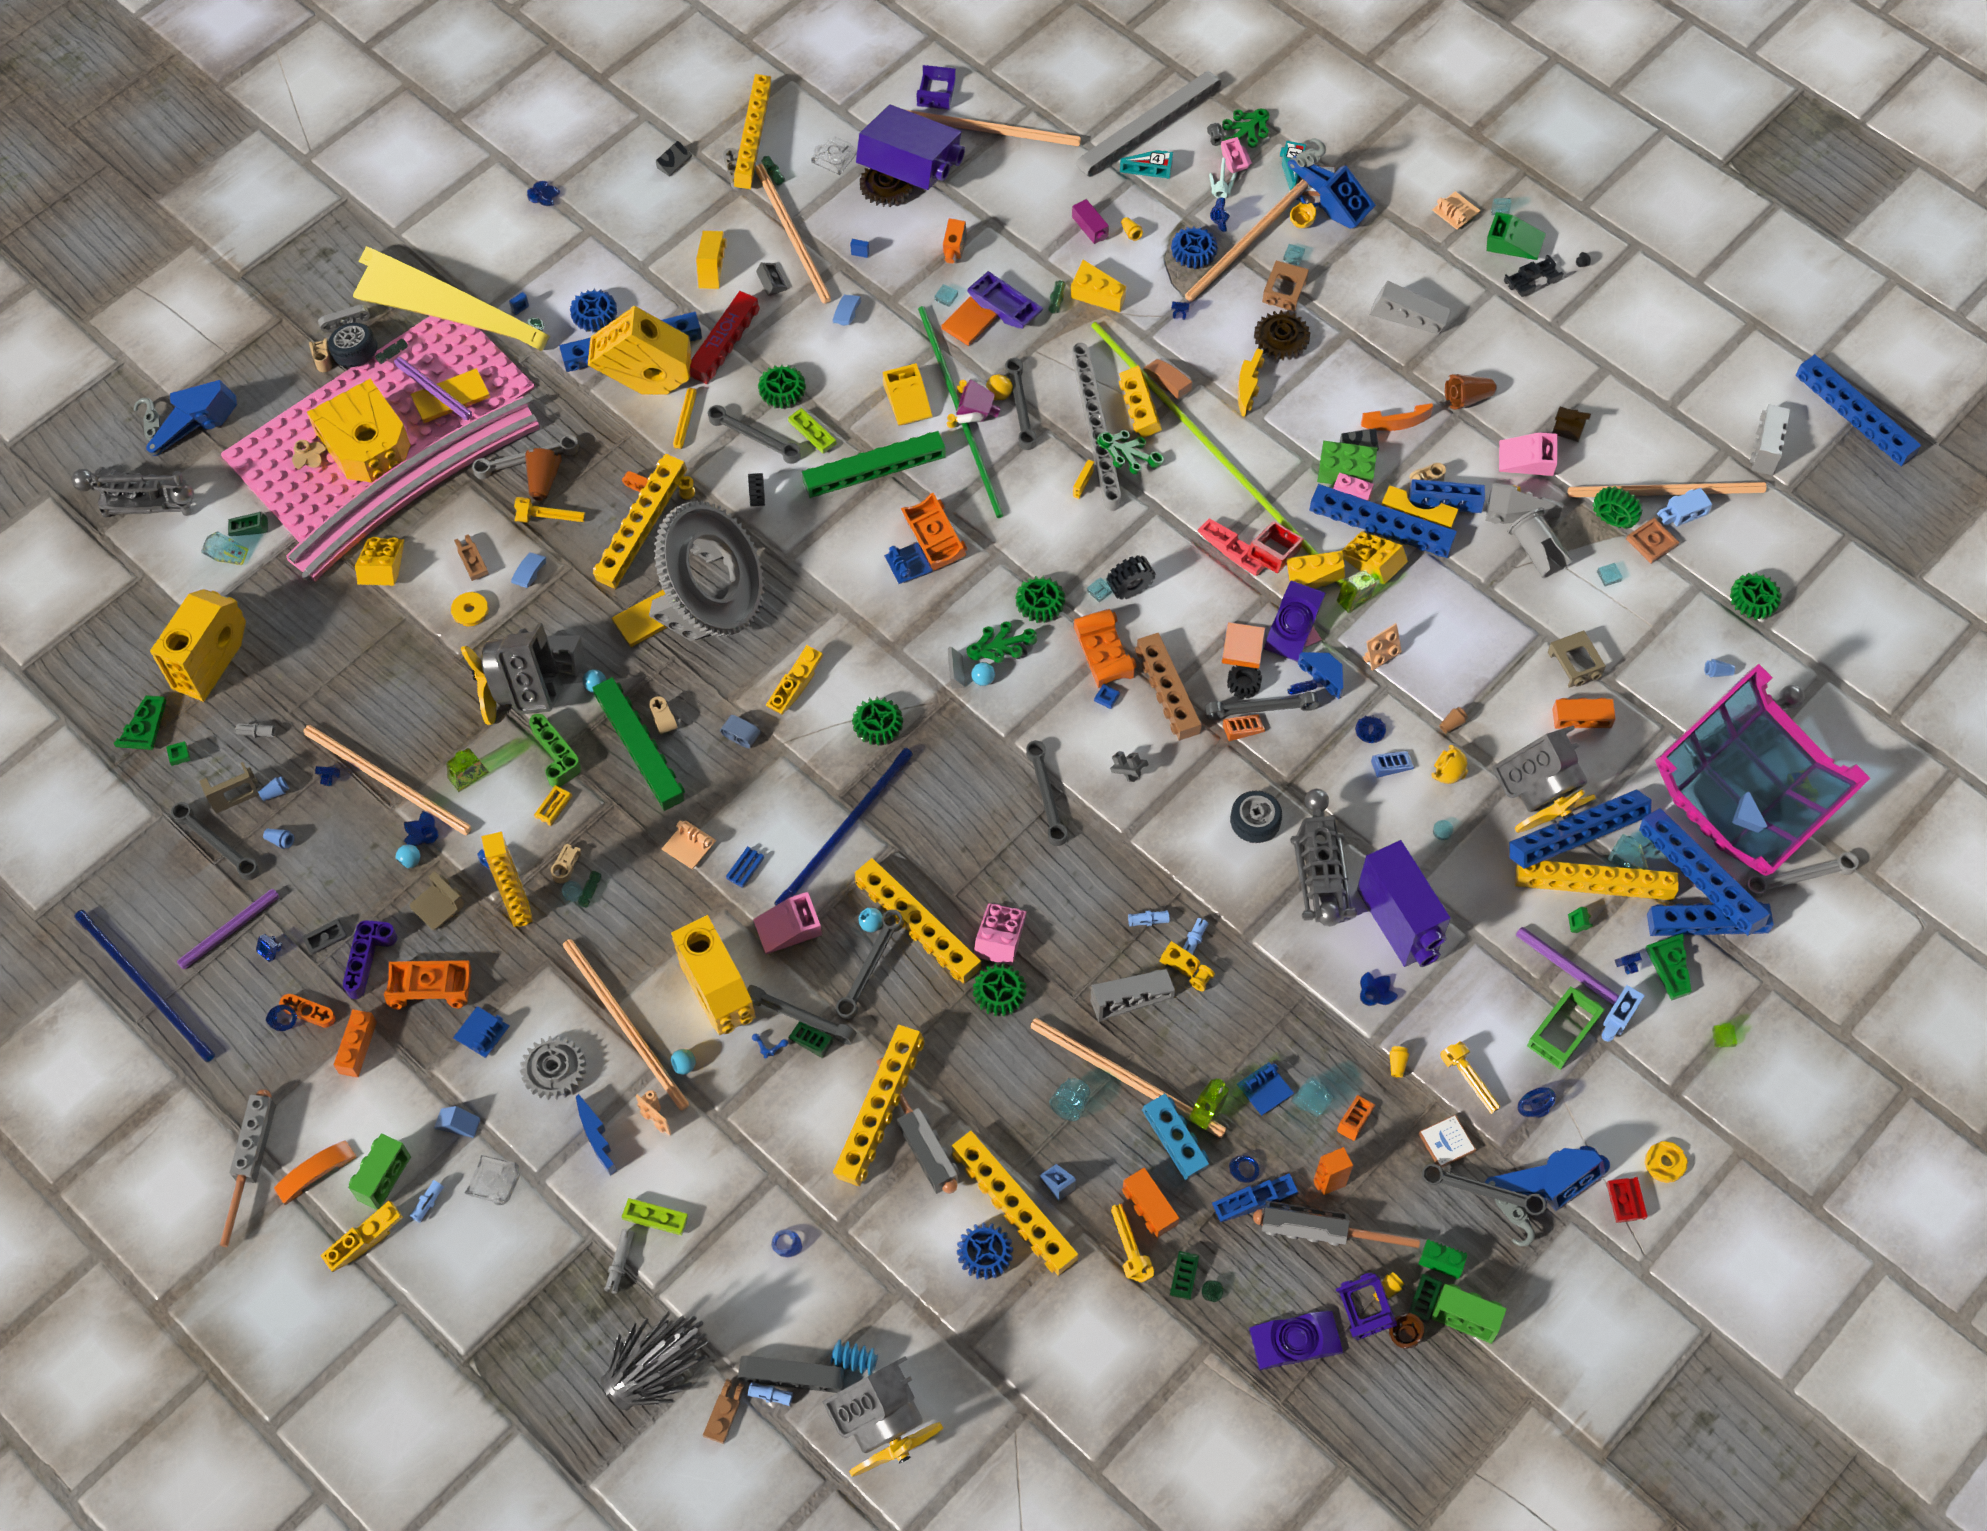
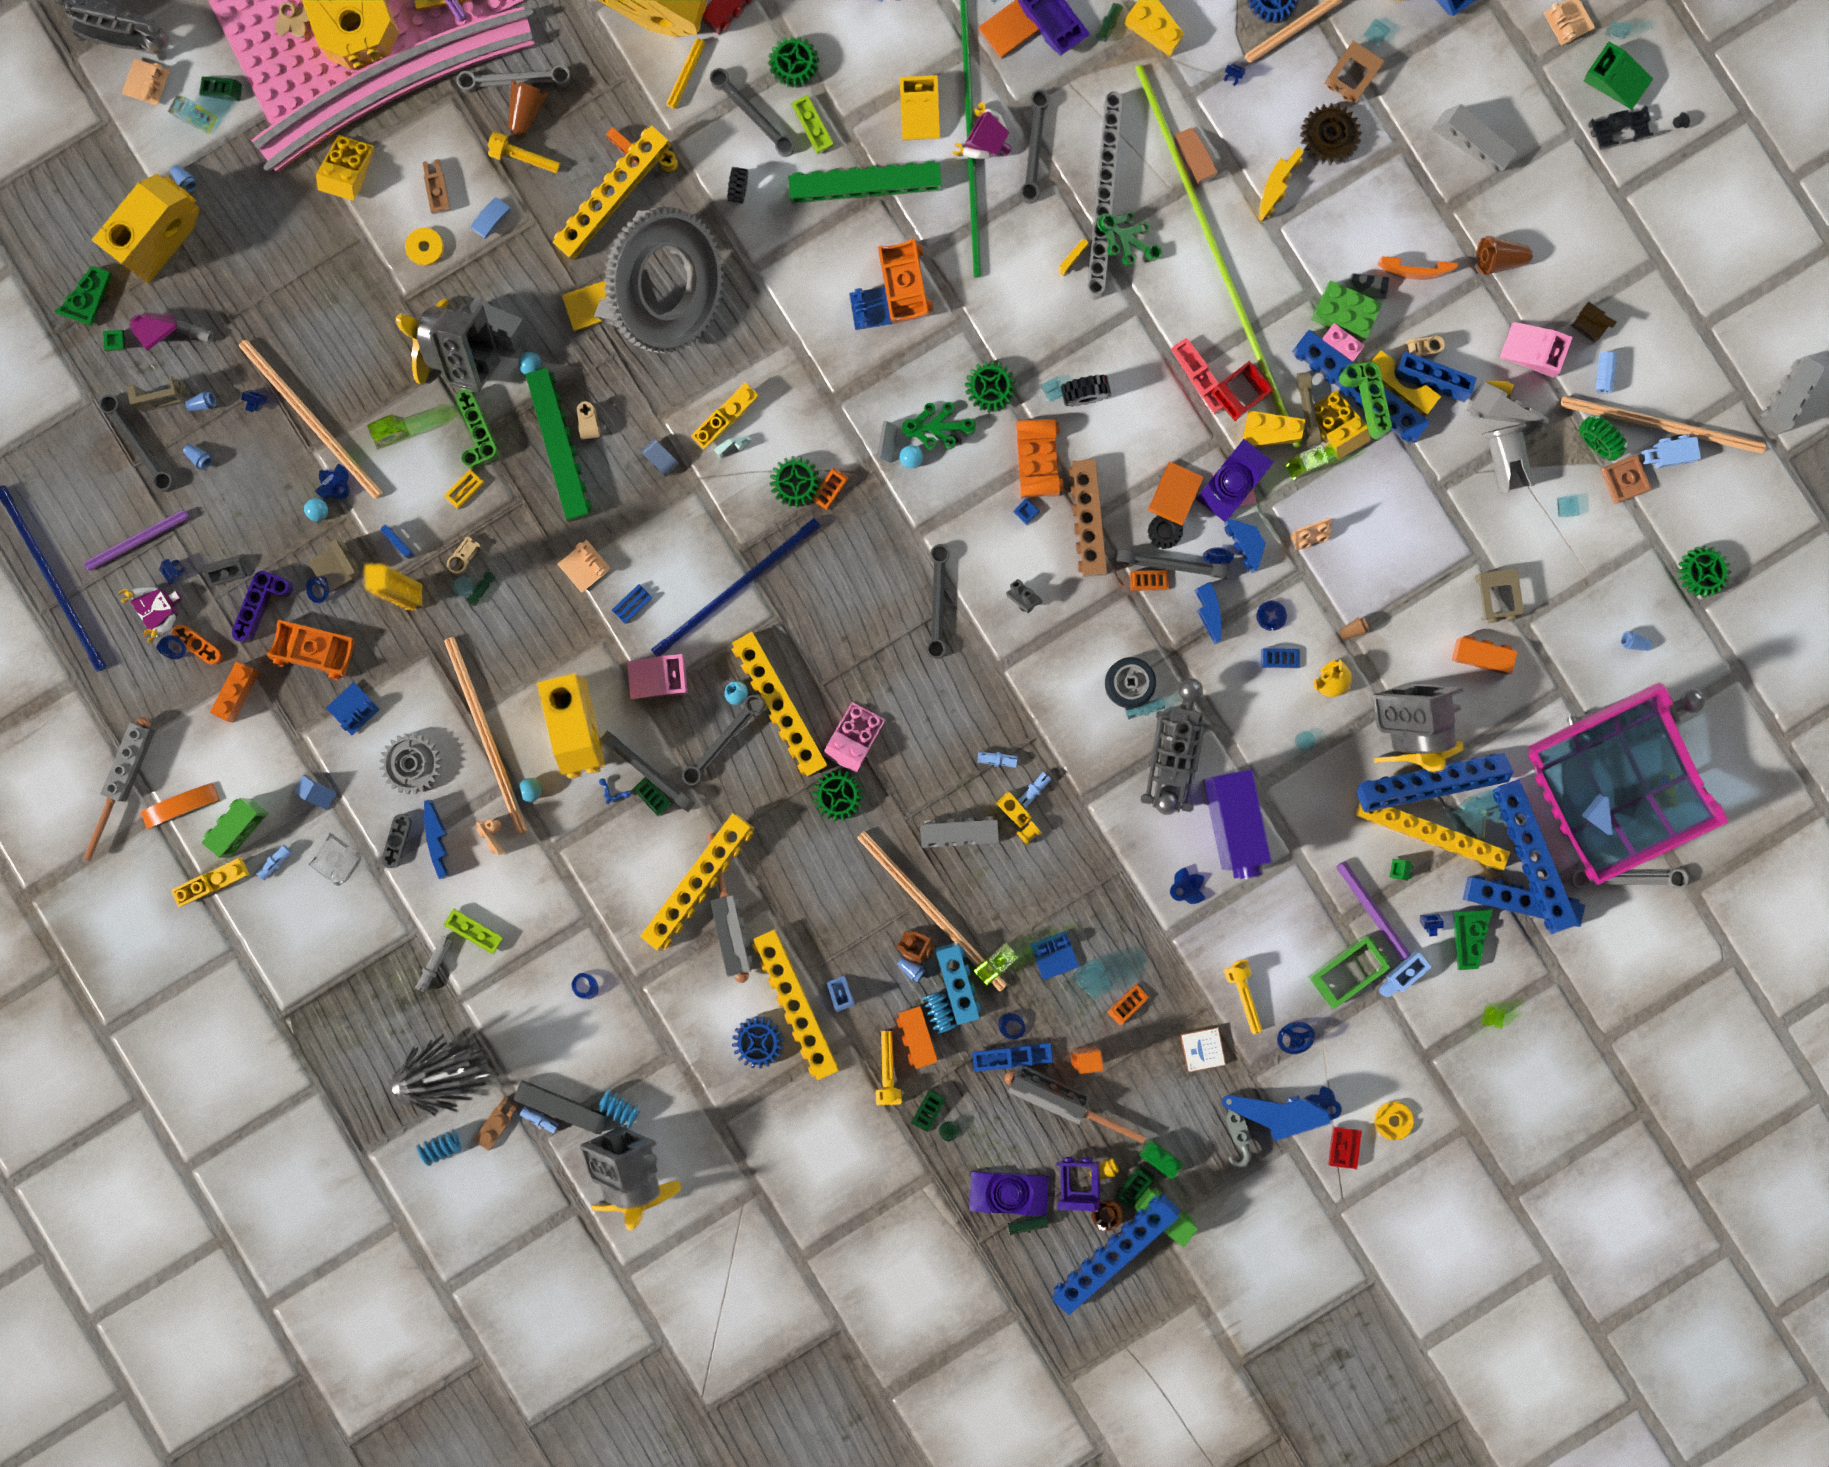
camera: 15 degrees right, 25 degrees up
(175, 535) = (145, 81): none -> light nougat hinge
(214, 732) = (152, 328): none -> magenta slope
(256, 984) = (154, 608): none -> torso
(414, 925) = (322, 582): none -> clear blue piece
(546, 1162) = (395, 825): none -> dark grey beam
(667, 1451) = (440, 1149): none -> dark azure piece
(805, 703) = (738, 442): none -> light aqua slope
(917, 706) = (841, 476): none -> orange slope
(1000, 386) = (1017, 120): yellow hair -> none
(1070, 1099) = (873, 922): clear light blue piece -> none
(1122, 1112) = (916, 946): none -> dark orange hand
(1124, 1137) = (912, 969): none -> medium blue cone
(1150, 422) = (1162, 207): yellow brick -> none
(1163, 1170) = (939, 1011): none -> dark azure piece
(1278, 838) = (1145, 709): none -> clear light blue pin
(1310, 737) = (1210, 611): none -> blue slope
(1327, 1366) = (1028, 1225): none -> clear green pin
(1330, 532) = (1312, 430): none -> dark tan piece
(1389, 508) = (1377, 422): none -> bright green beam
(1398, 1060) = (1184, 962): yellow cone -> none
(1399, 1433) = (1070, 1300): none -> blue brick
(1484, 1189) = (1219, 1108): dark grey piece -> none
(1598, 459) = (1606, 372): none -> light blue axle

